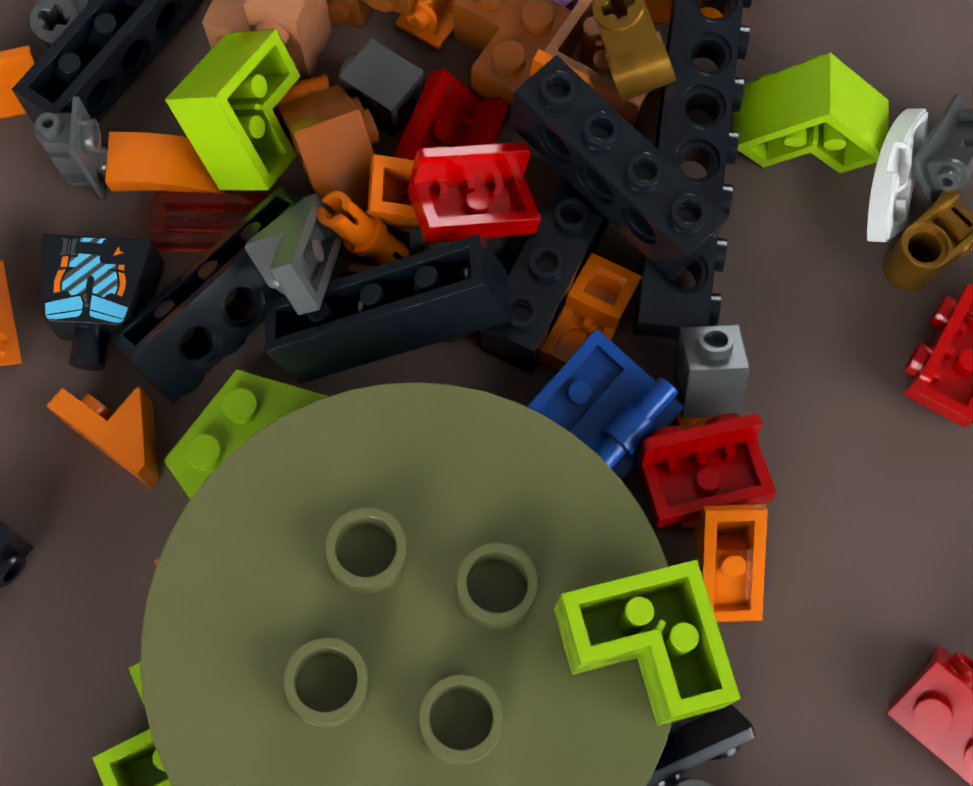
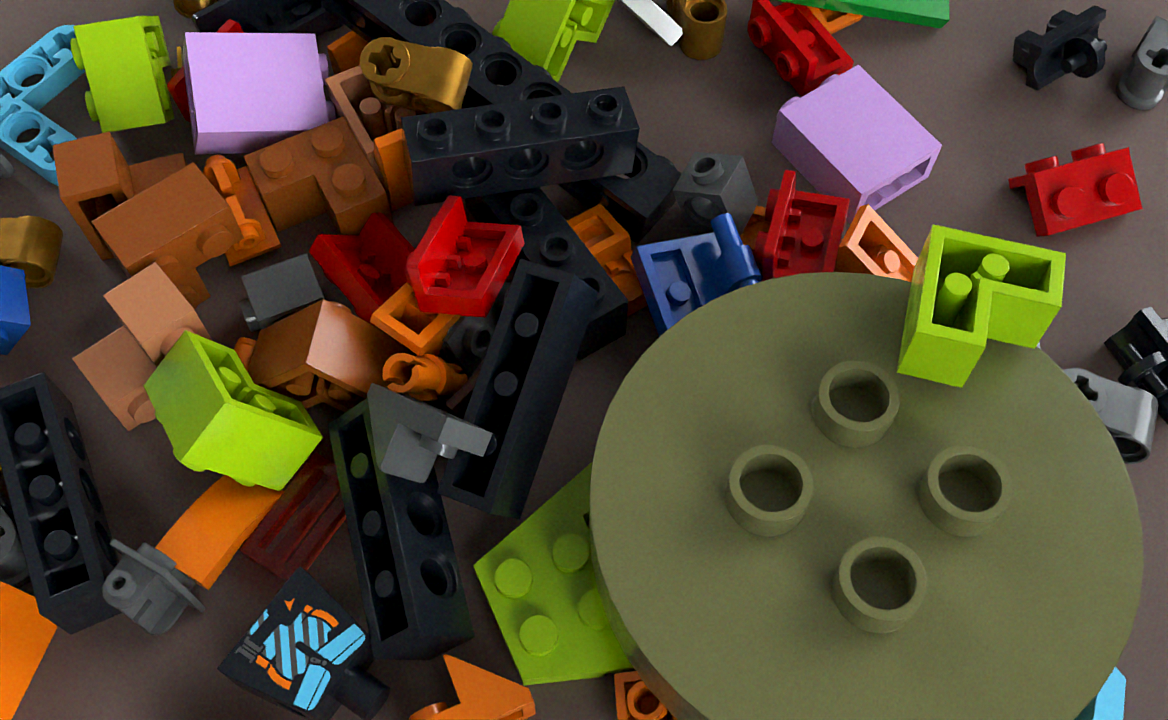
camera: 60 degrees left, 10 degrees down
(870, 470) = (855, 141): none -> lavender brick

